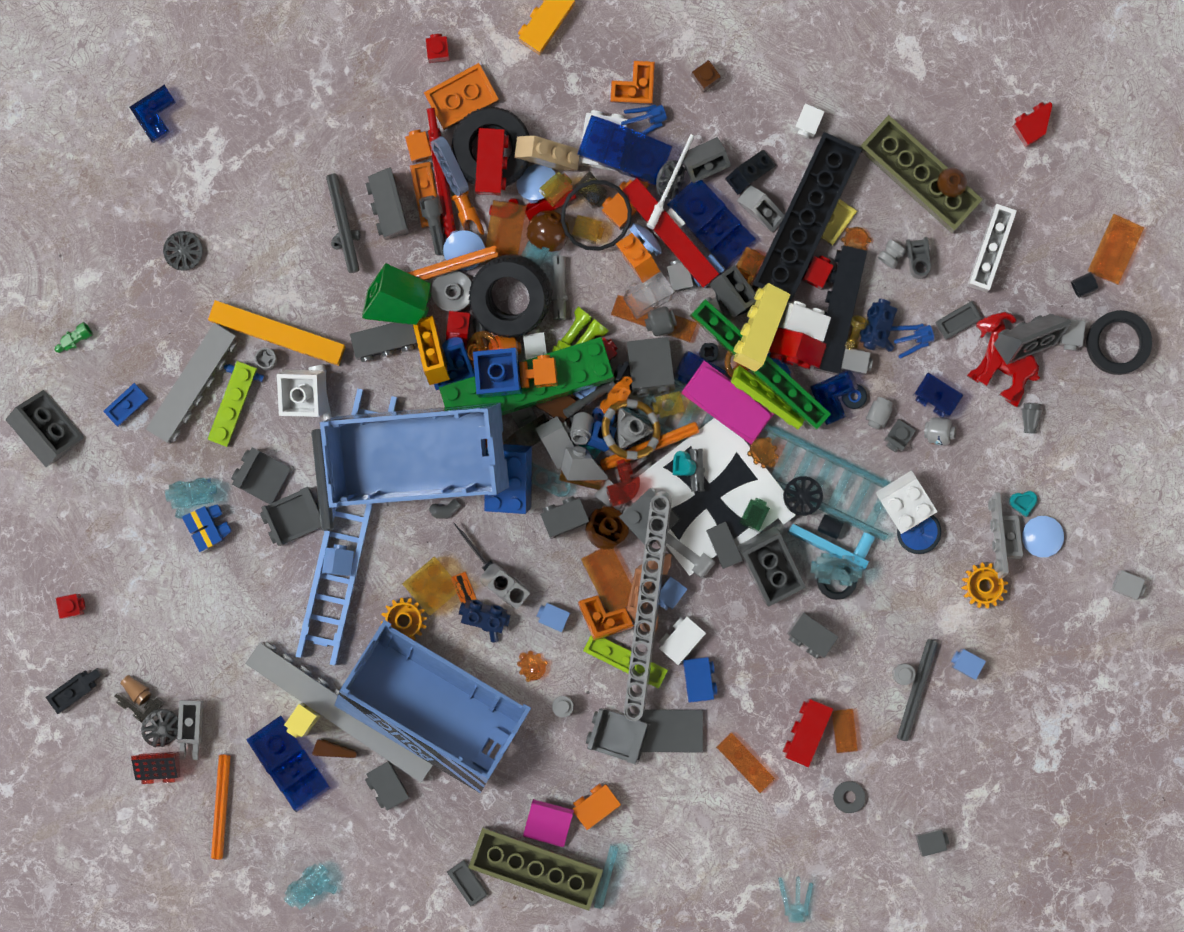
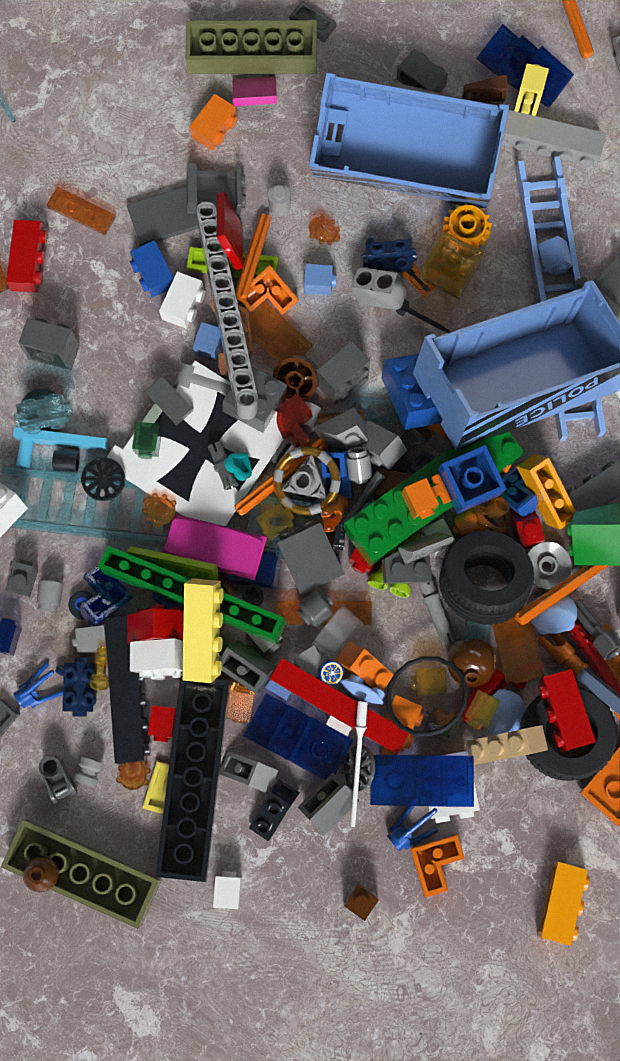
camera: 160 degrees right, 10 degrees down
(552, 338) = (424, 546): none -> light grey slope
(570, 329) = (398, 572): none -> dark grey wing
(606, 655) = (252, 257): none -> orange axle
(606, 875) = (181, 65): clear light blue tile -> none
(619, 682) = (229, 231): none -> red tile
(667, 262) = (330, 672): none -> blue tile
(771, 566) = (113, 395): dark grey brick -> none

